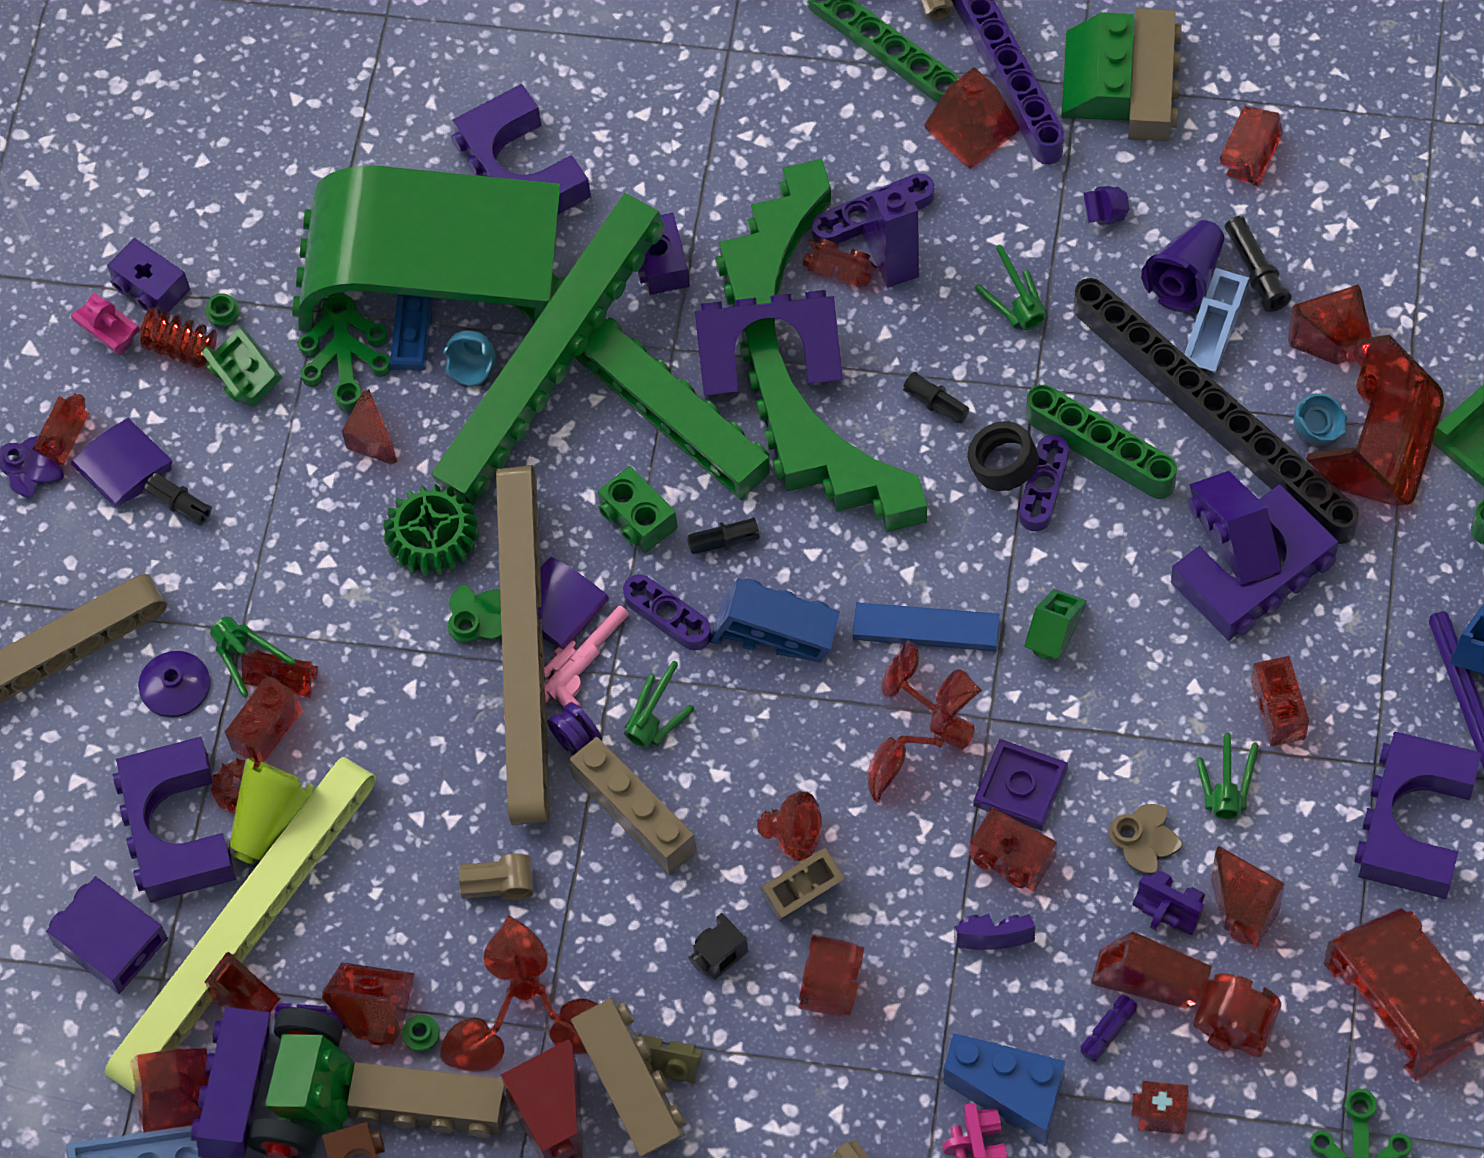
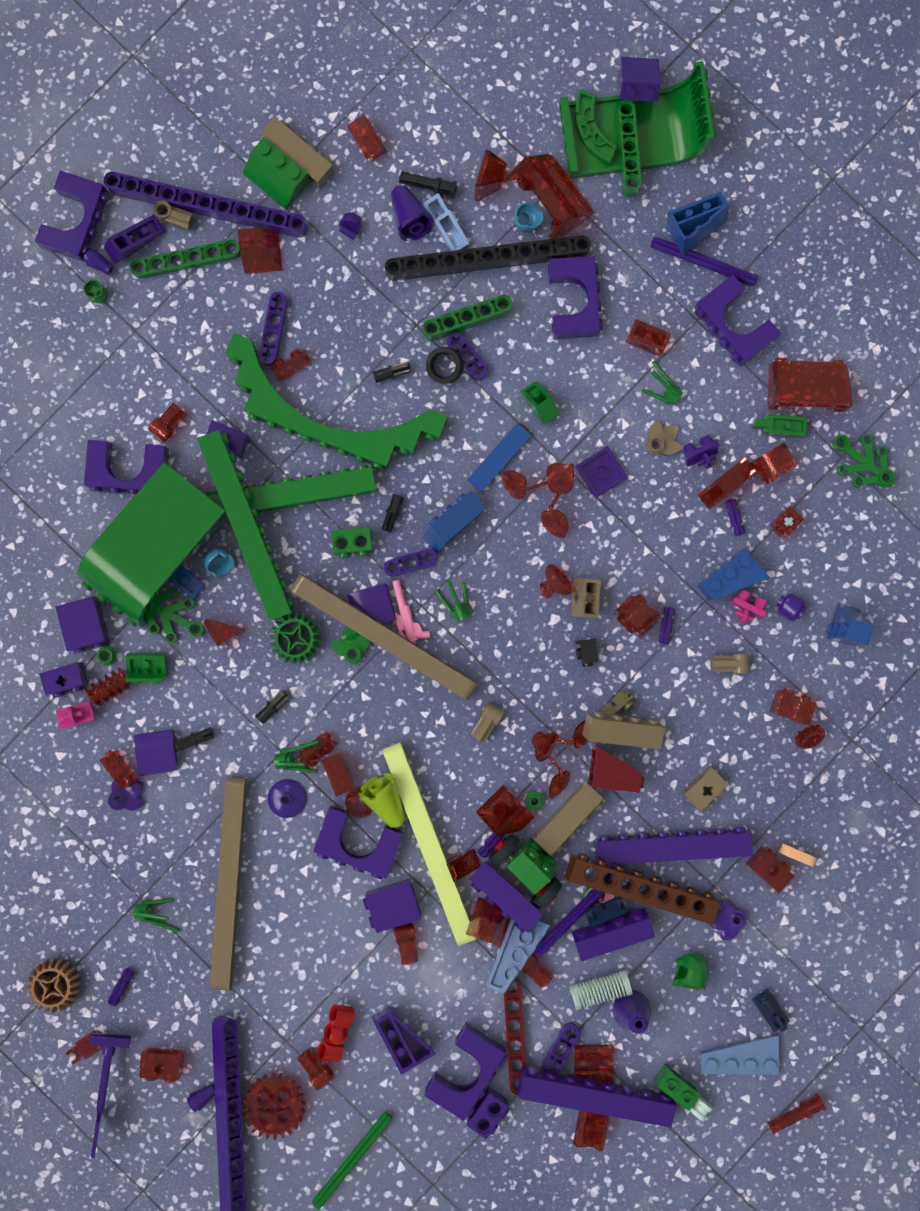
camera: 65 degrees left, 25 degrees up
(66, 986) = (405, 939): none -> clear red piece
(247, 250) = (82, 624): none -> dark purple brick
(302, 569) = (272, 706): none -> black axle
(573, 728) = (443, 645): dark purple wheel -> none
(616, 166) = (164, 426): none -> clear red piece
(633, 805) = (496, 642): dark tan brick -> none
(811, 317) = (292, 440): dark purple arch -> none
(852, 1042) = (666, 625): none -> dark purple axle
(893, 234) = (302, 331): dark purple slope -> none
(981, 934) = (659, 537): dark purple slope -> none
(1004, 834) = (620, 498): clear red brick -> none
(1027, 308) = (377, 299): green plant -> none
(1236, 525) = (555, 292): dark purple wedge -> none
(1245, 897) = (726, 421): clear red slope -> none
(1313, 997) = (782, 425): none -> green hinge

